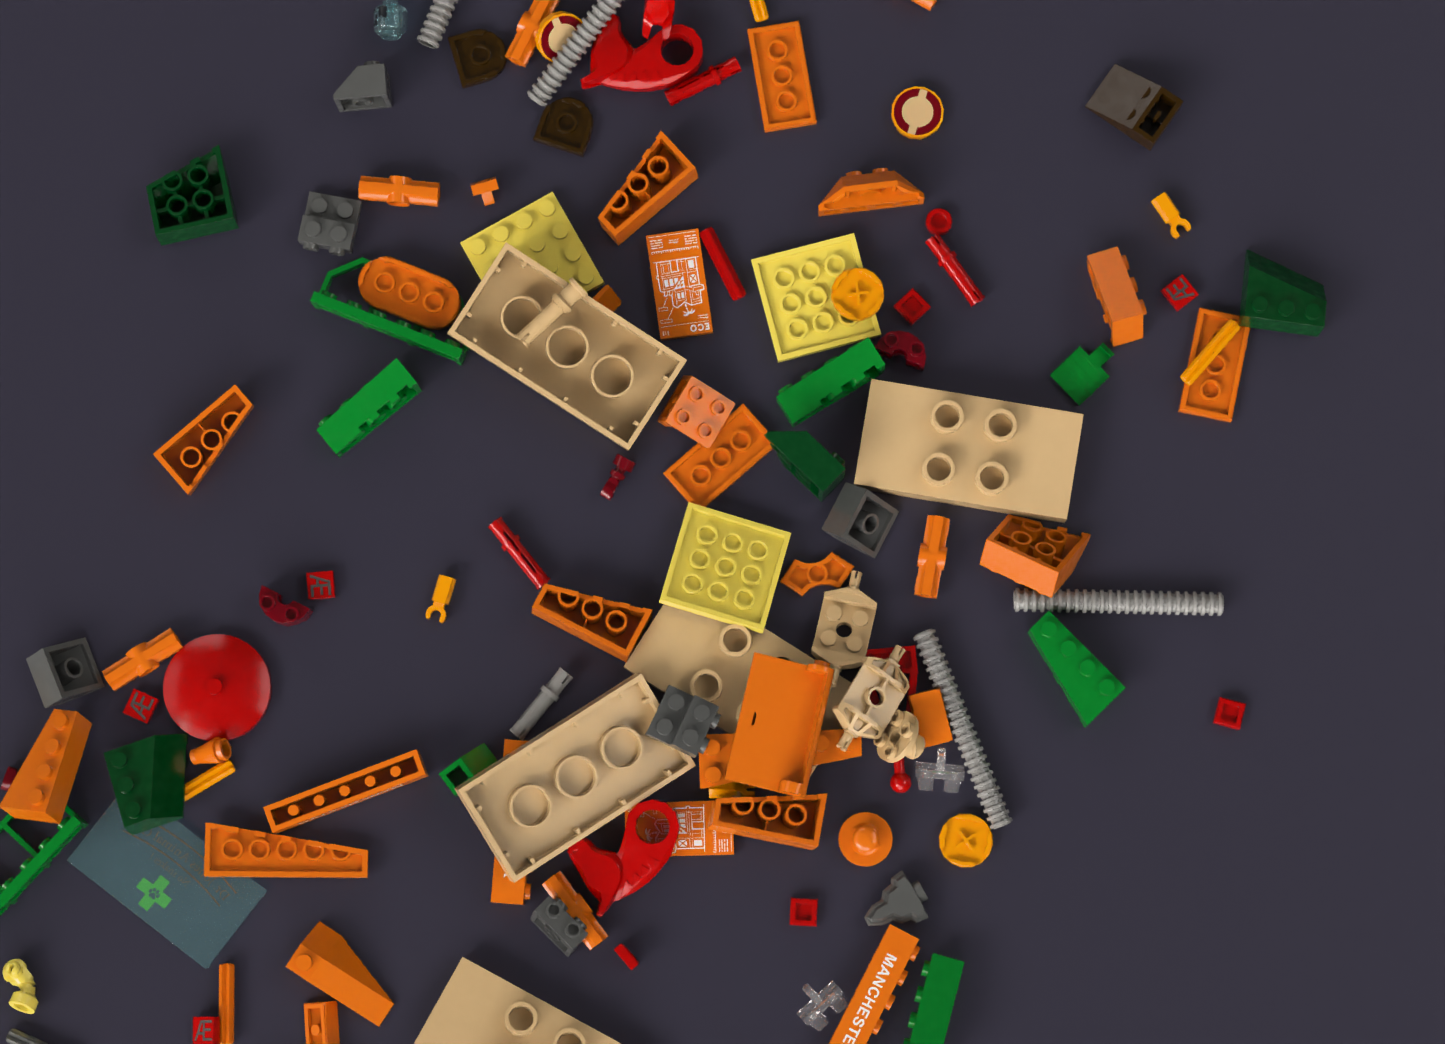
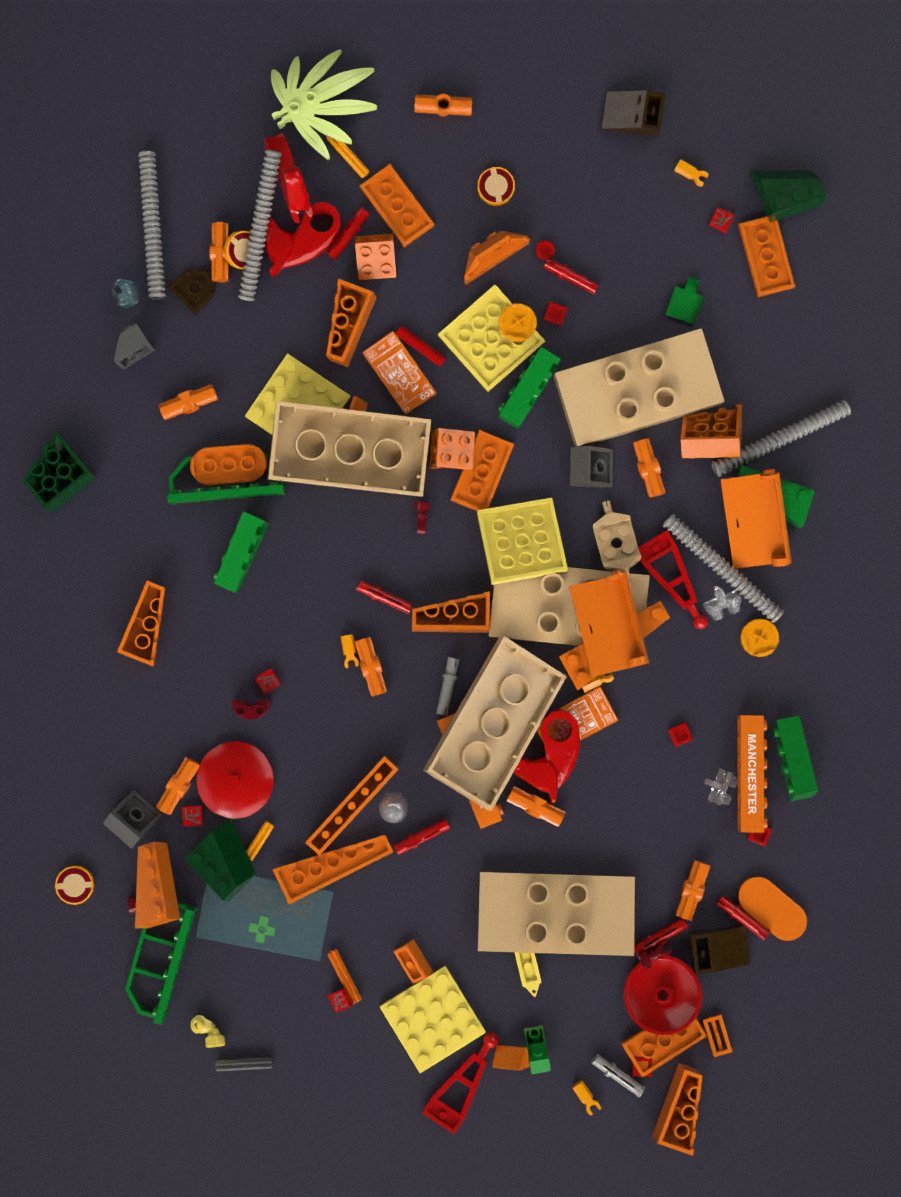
camera: 30 degrees left, 5 degrees up
(213, 751) = (253, 822): orange cone -> none
(330, 223) = (154, 445): dark grey plate -> none
(335, 969) = (404, 920): orange wedge -> none
(395, 822) = (393, 807): none -> clear hair
(412, 876) = (421, 836): none -> red pin
(457, 631) = (370, 666): none -> orange piece
(467, 767) = (423, 750): green slope -> none
(485, 188) = (242, 372): orange tile -> none
(559, 925) = (532, 822): dark grey plate -> none
(561, 303) = (332, 423): tan pin -> none
(565, 126) = (274, 306): dark brown tile -> none
(625, 954) = (583, 819): red tile -> none
(683, 721) = (546, 653): dark grey plate -> none
(722, 126) = (375, 256): none -> orange bracket
(771, 818) = (632, 686): orange wedge -> none
(805, 576) = (573, 521): orange tile -> none
(808, 461) = (542, 446): dark green wedge -> none
(856, 710) = (653, 591): tan plate -> none
(865, 839) = (696, 668): orange plate -> none
(899, 903) = (737, 698): dark grey rock -> none
(900, 738) = (688, 594): tan plate -> none
(903, 344) = (565, 340): dark red cylinder -> none
(932, 716) = (699, 571): orange slope -> none
(1040, 674) = (758, 510): none -> orange door
(1117, 295) = (683, 240): orange wedge -> none
(1210, 351) = (760, 249): light orange axle -> none
(1229, 713) = (885, 474): red tile -> none

